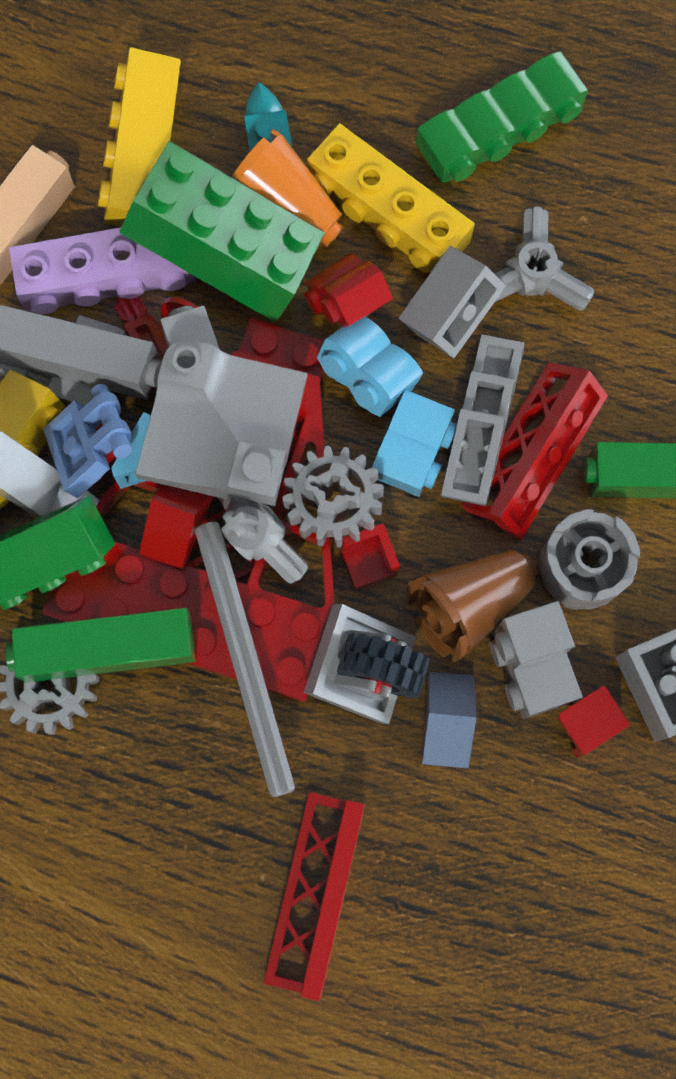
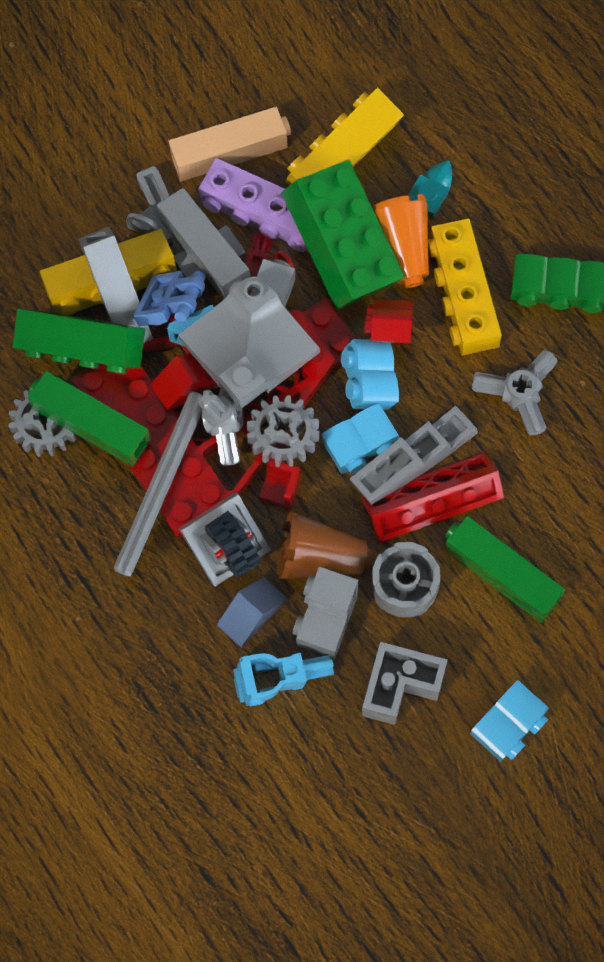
camera: 45 degrees right, 5 degrees down
(332, 899) = (104, 653): red fence -> none
(452, 301) = (448, 372): light grey brick -> none
(546, 753) = (292, 673): none -> medium azure piece
(593, 721) = (330, 672): red panel -> none

